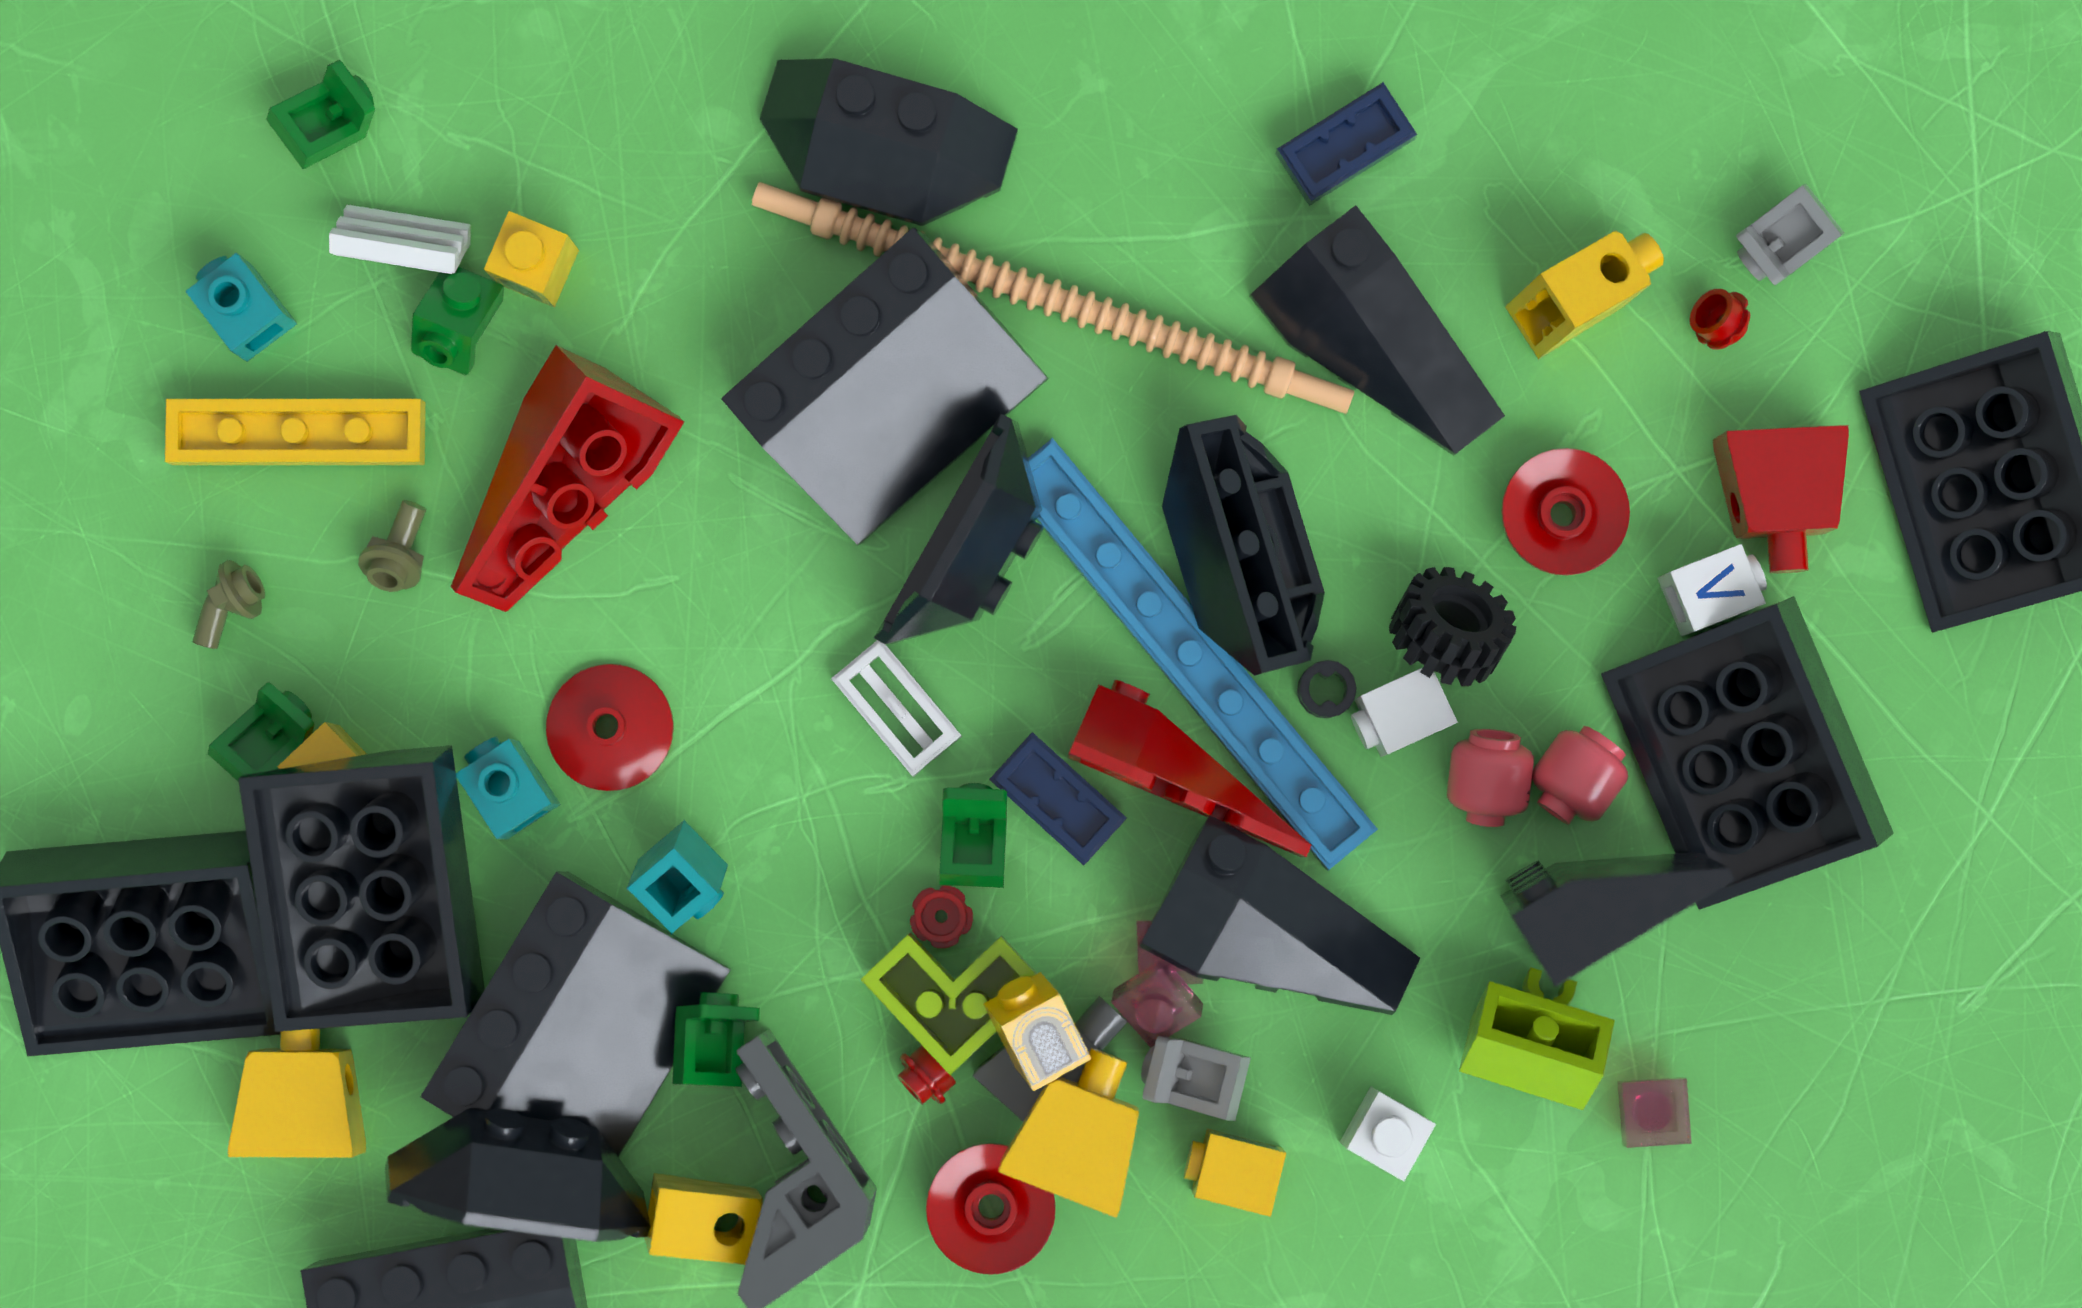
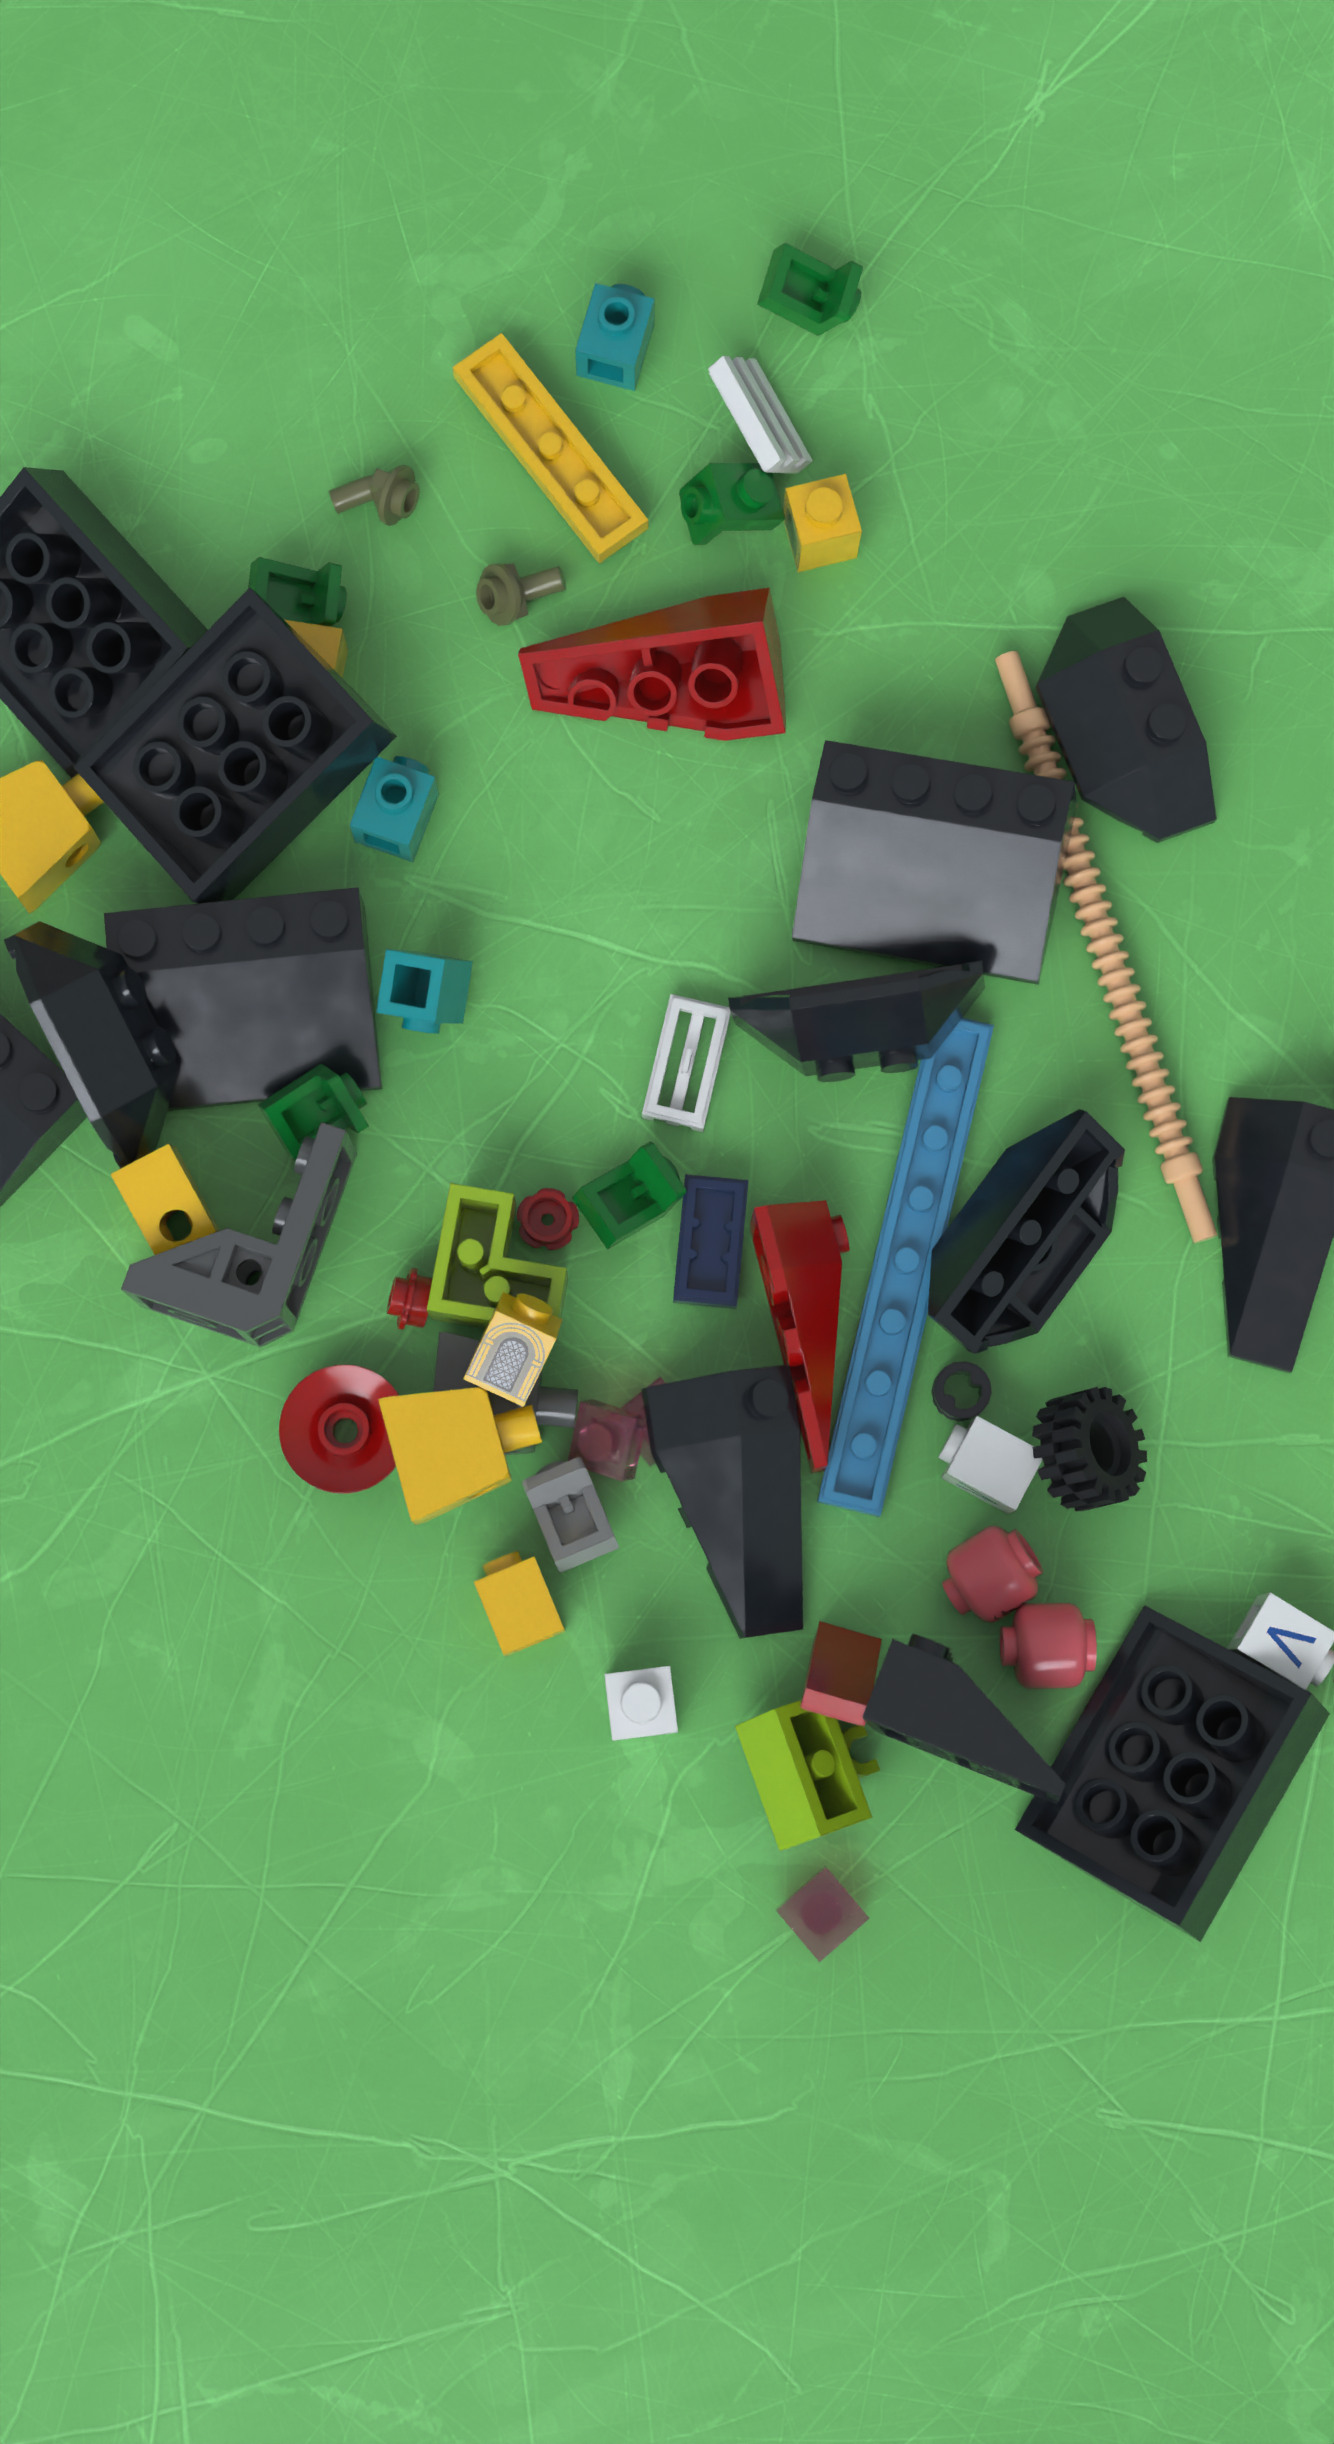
camera: 50 degrees right, 5 degrees down
(641, 736) = (508, 883): red dish -> none
(1483, 958) = (841, 1673): none -> red tile
(1597, 507) = (1284, 1469): red dish -> none

